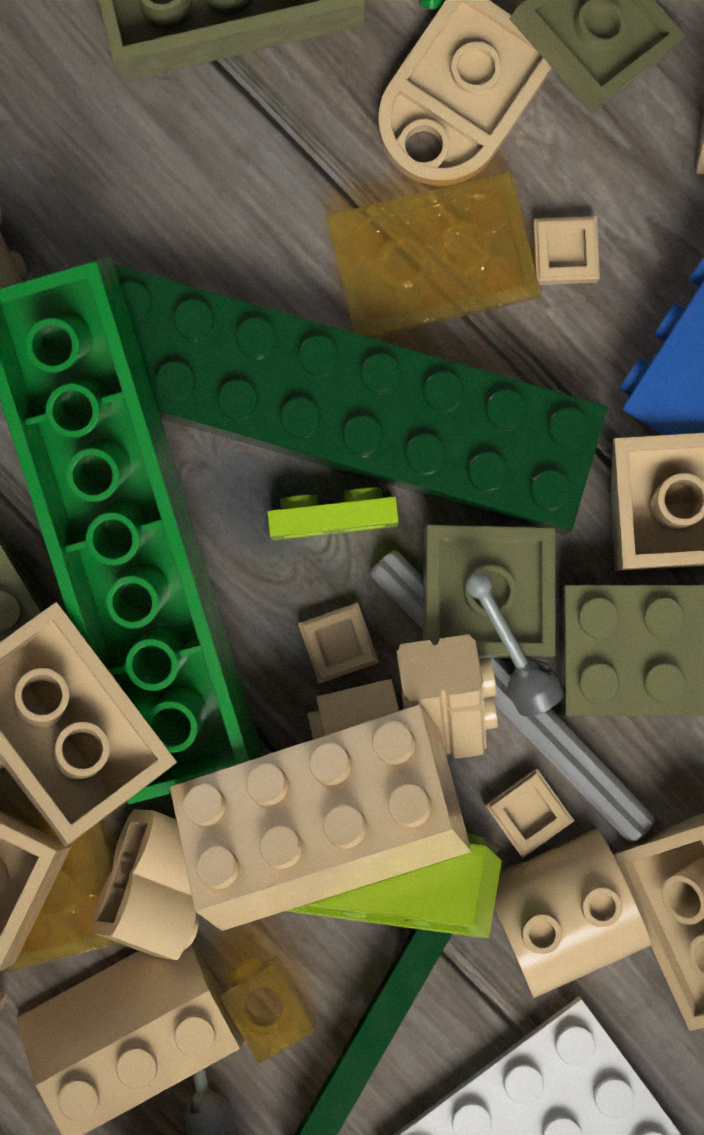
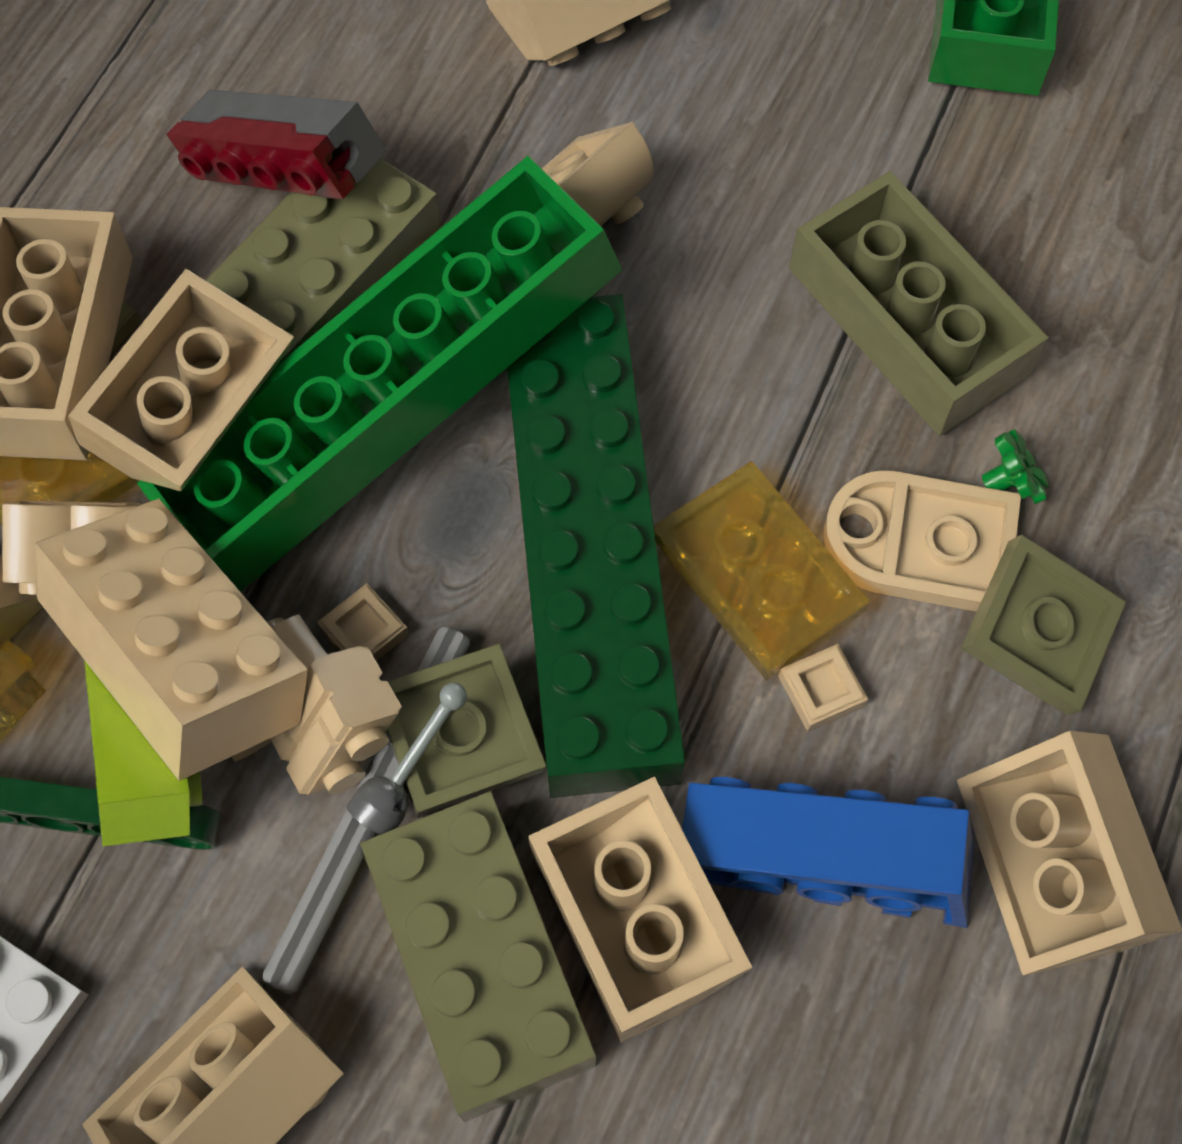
camera: 65 degrees right, 20 degrees down
(360, 511) = (468, 551): lime plate -> none
(529, 812) = (259, 867): tan tile -> none
(568, 912) = (162, 938): tan brick -> none

